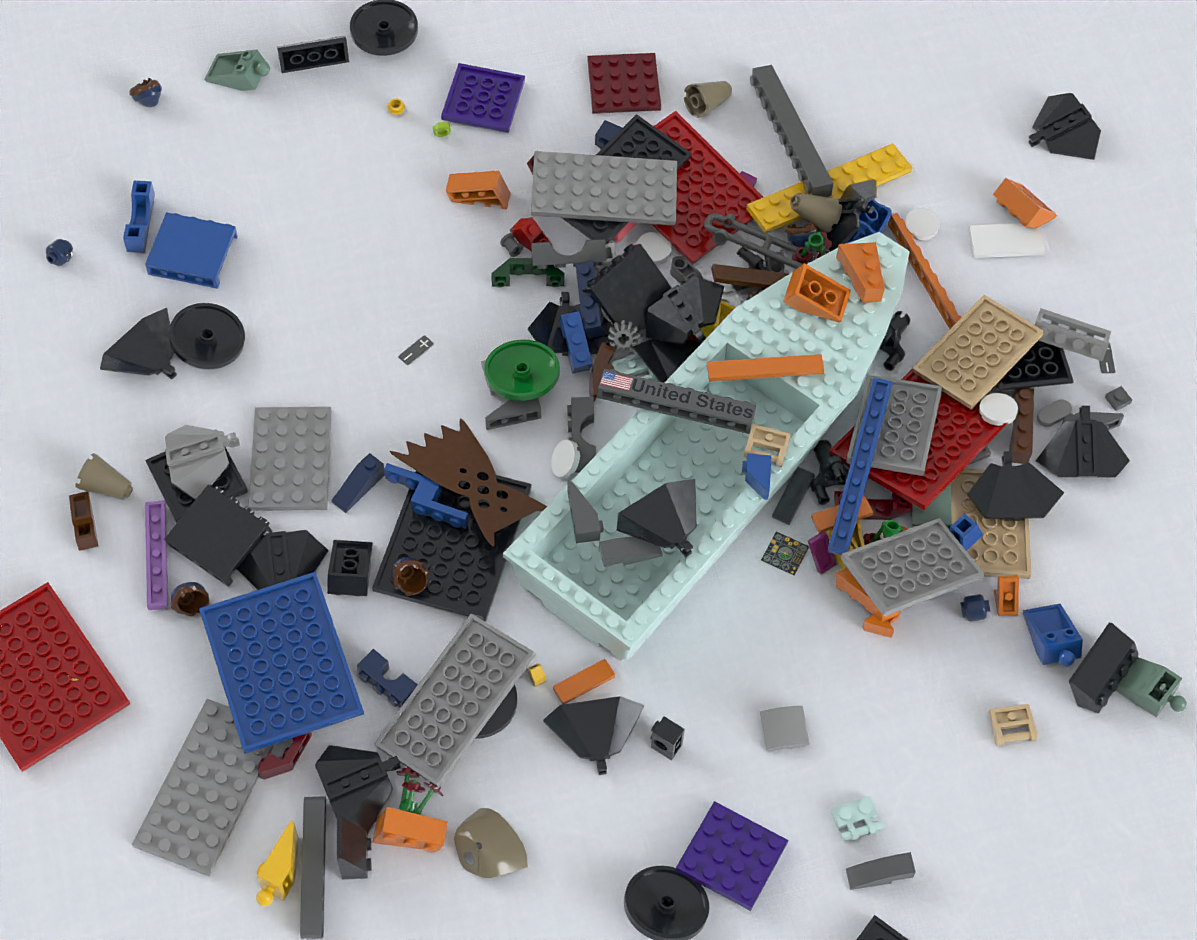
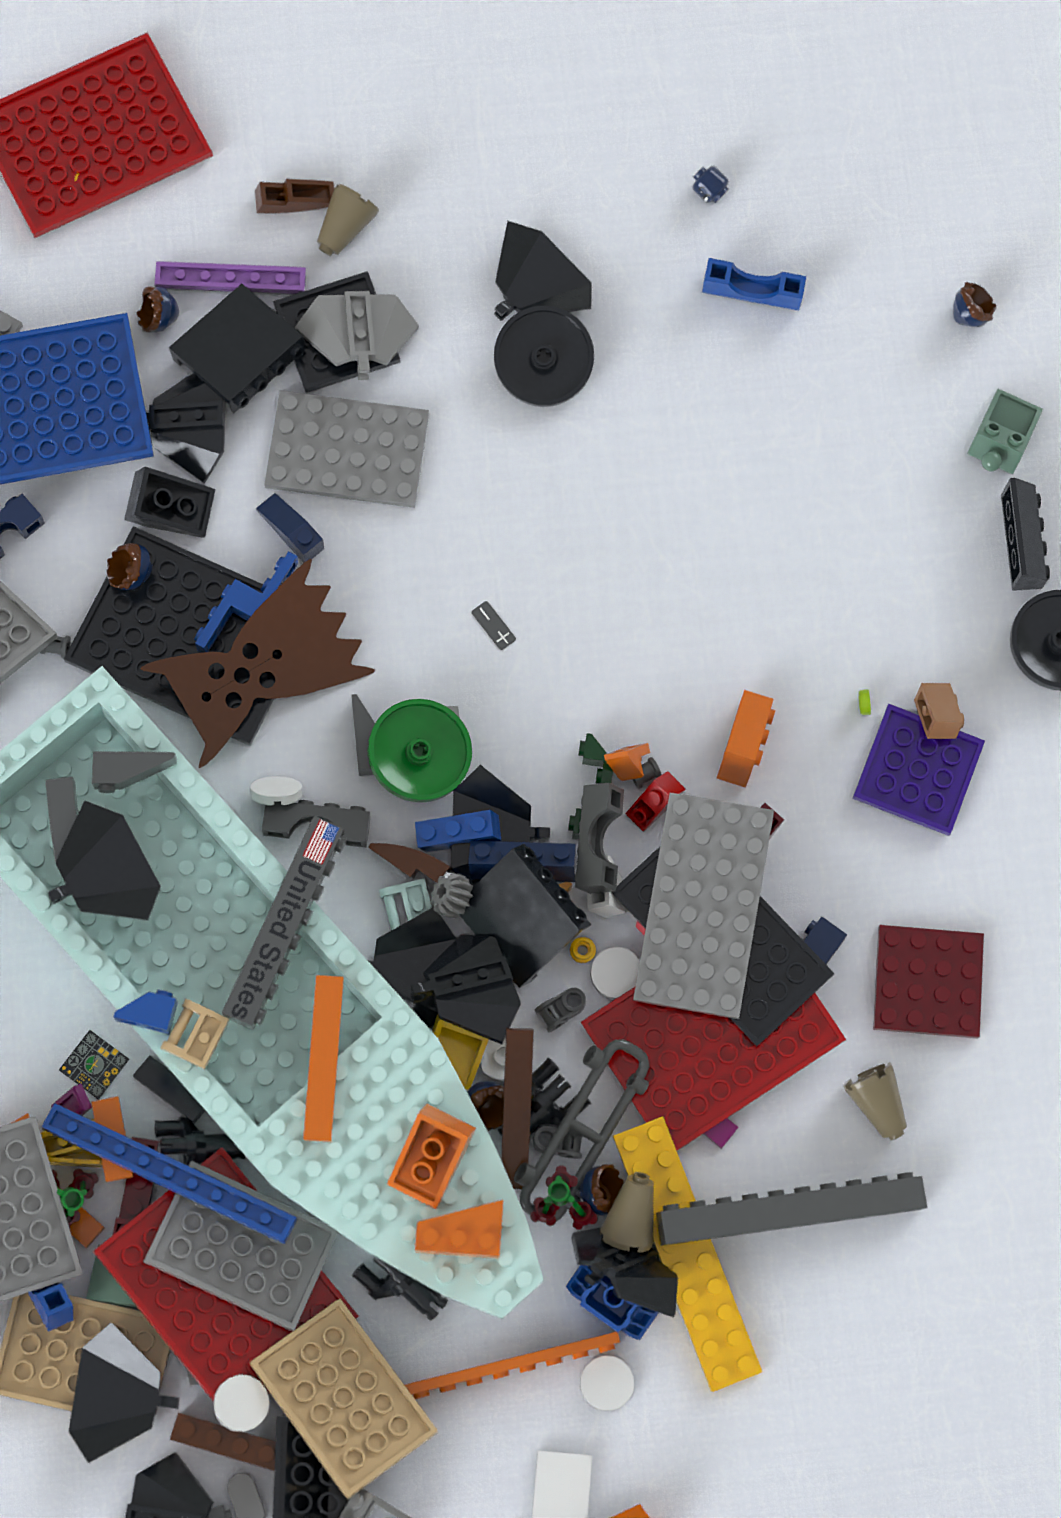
camera: 95 degrees right, 15 degrees up
(190, 250) = (694, 347): blue panel -> none
(396, 106) = (920, 639): yellow plate -> none
(443, 84) = (939, 710): none -> medium nougat brick
(505, 249) = (627, 761): none -> orange slope

